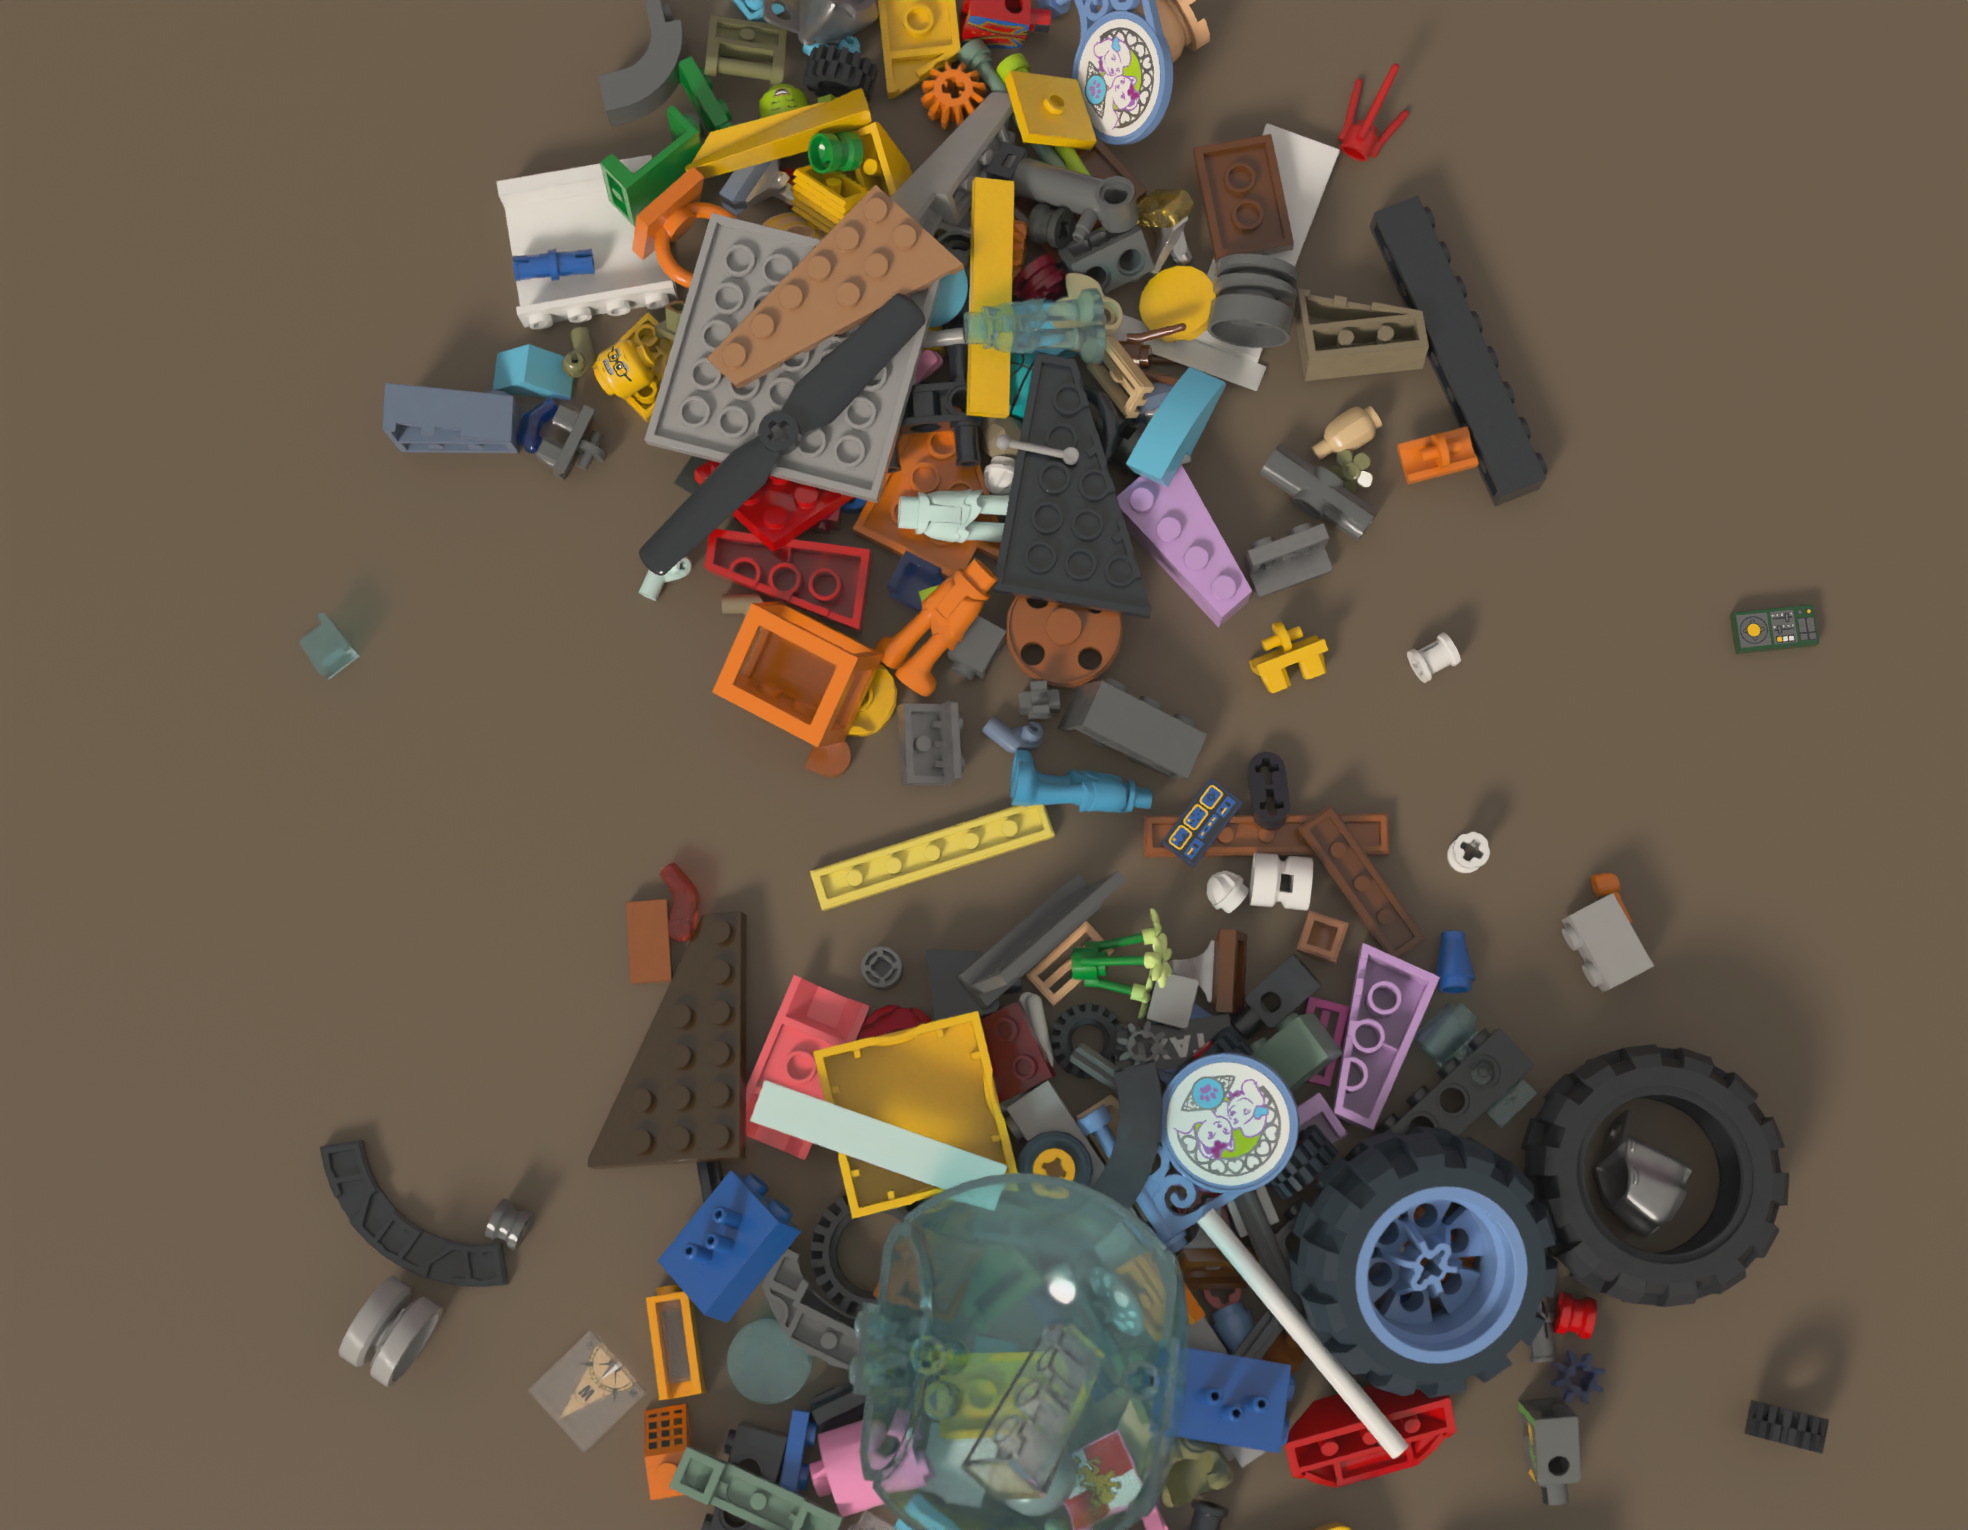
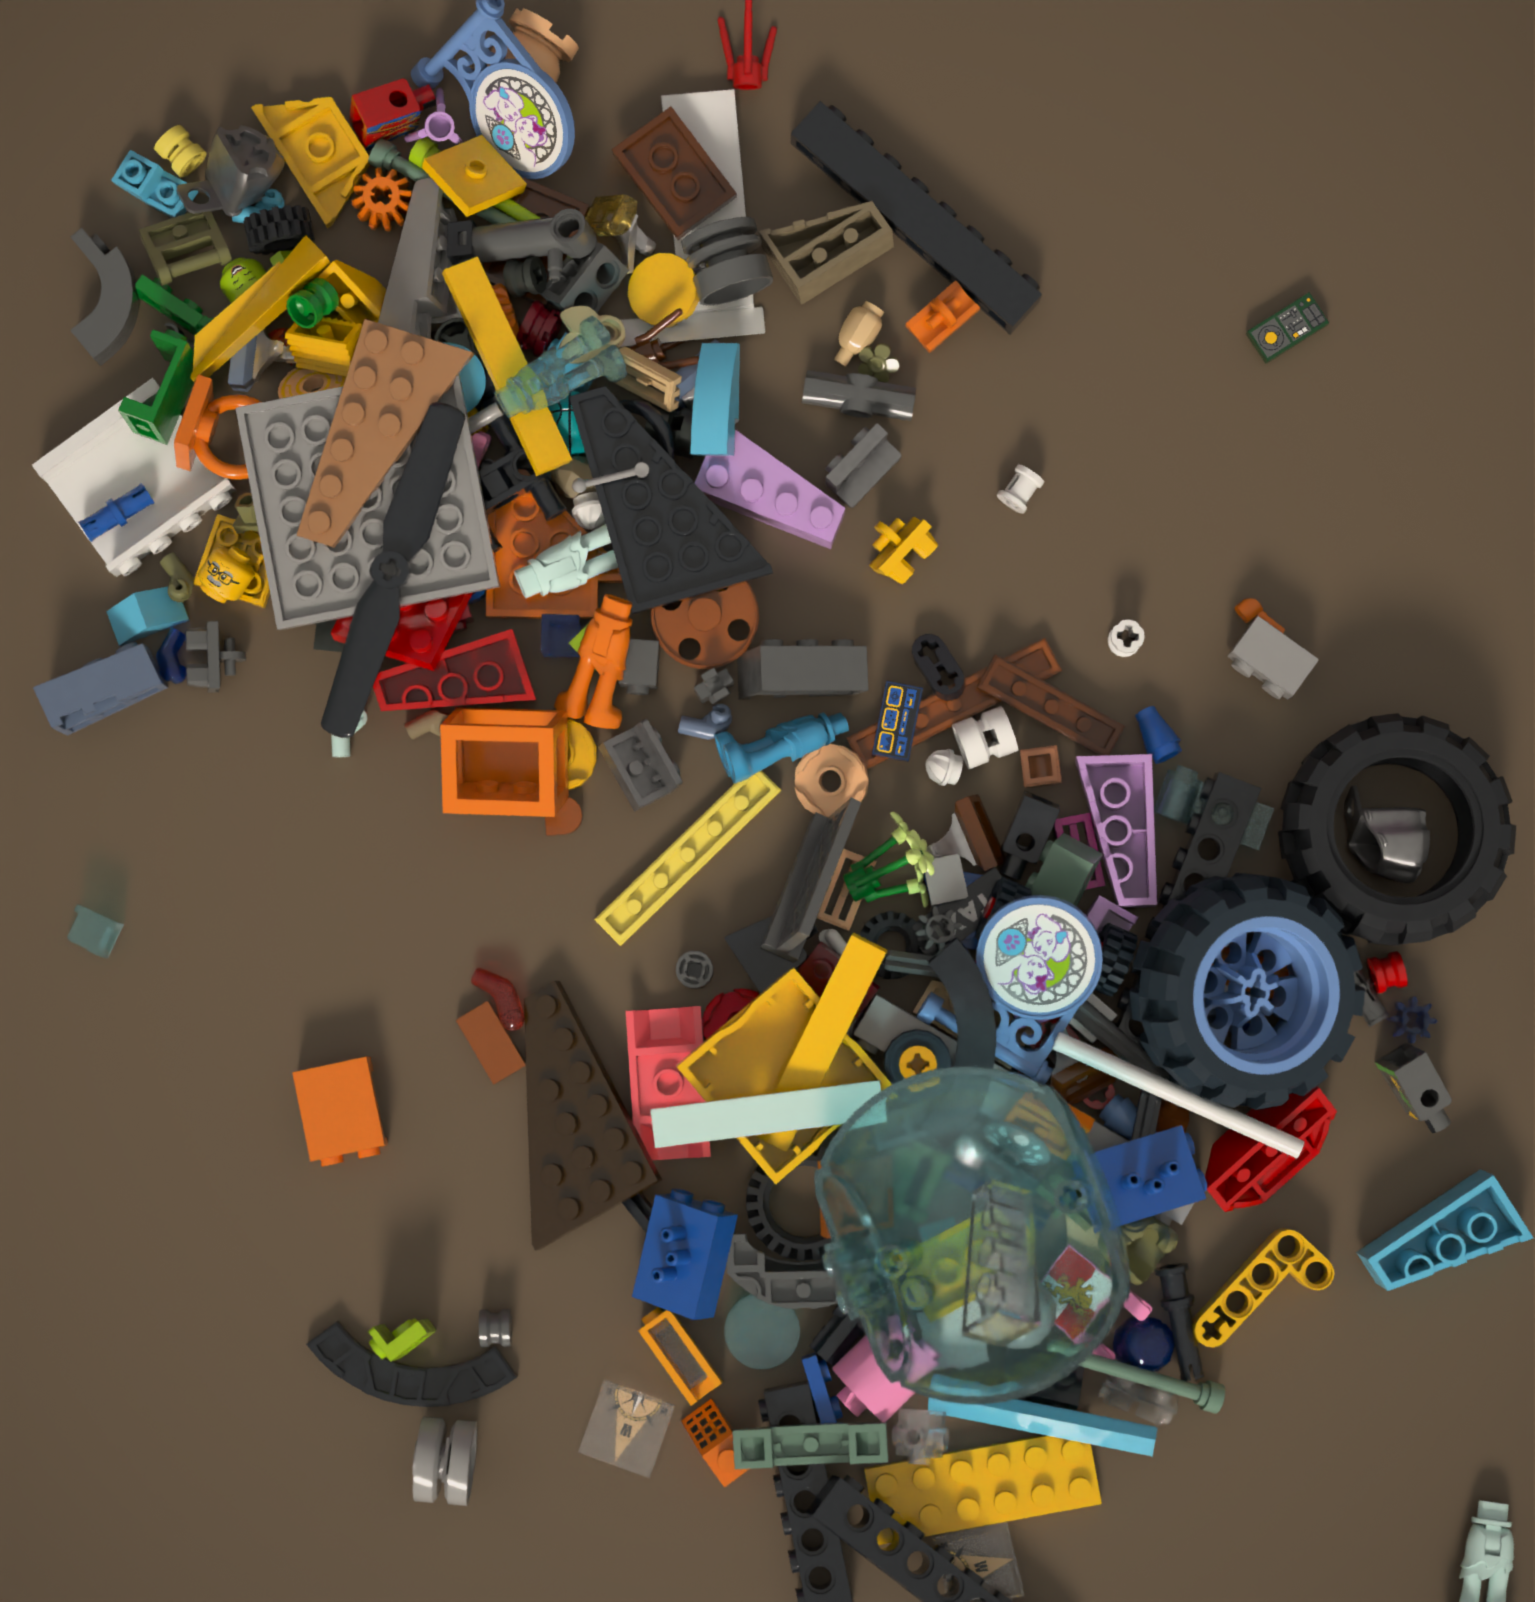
camera: 30 degrees left, 5 degrees up
(411, 1189) = (401, 1340): none -> lime bracket
(468, 934) = (339, 1110): none -> orange panel
(984, 1084) = (829, 1024): none -> yellow tile
(1038, 47) = (438, 125): none -> lavender plant
(1102, 826) = (812, 768): none -> light nougat tile

